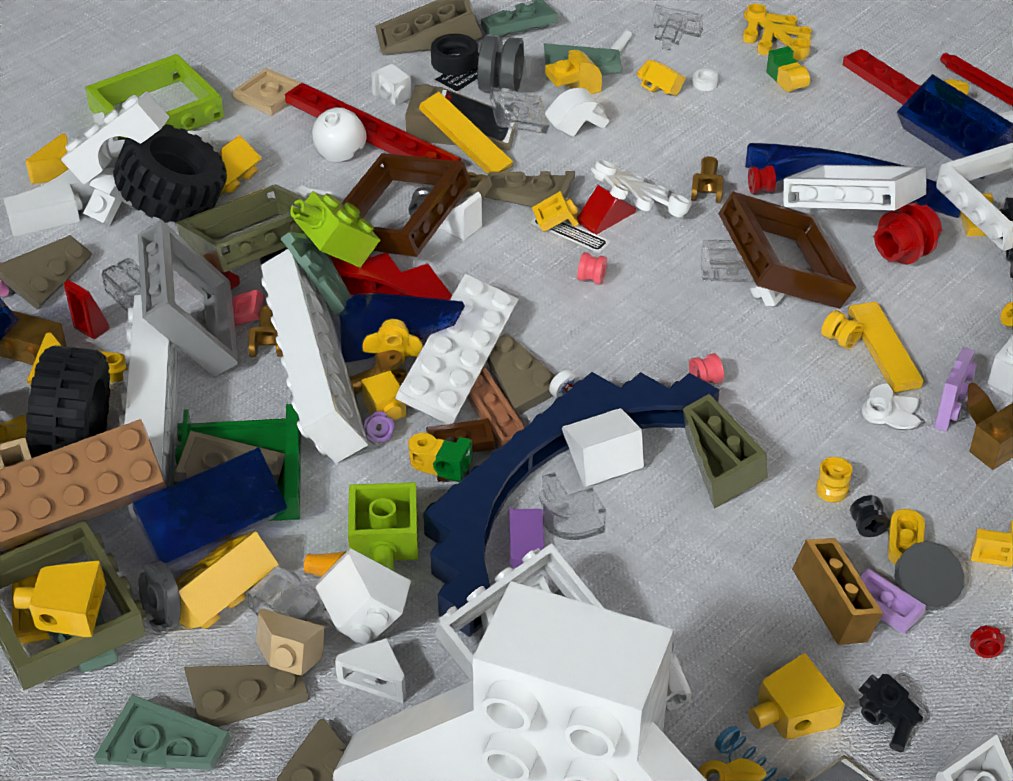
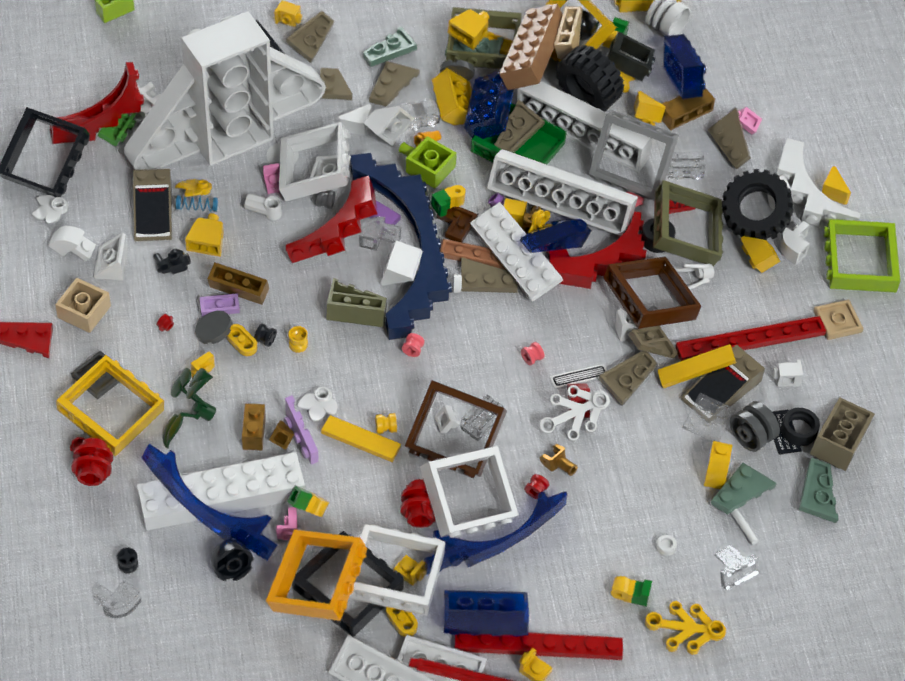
camera: 125 degrees right, 10 degrees up
(85, 311) = (681, 130): red slope -> none
(137, 121) = (786, 172): white arch -> none
(289, 642) = (395, 96): tan slope -> none
(319, 270) = (616, 221): sand green wing -> none
(335, 227) = (635, 230): lime brick -> none
(338, 134) = (752, 313): white cylinder -> none
(554, 211) = (592, 370): yellow bracket -> none
(573, 109) = (677, 442): white brick -> none
(604, 530) = (330, 237): none -> red arch
(660, 77) = (684, 516): yellow piece -> none

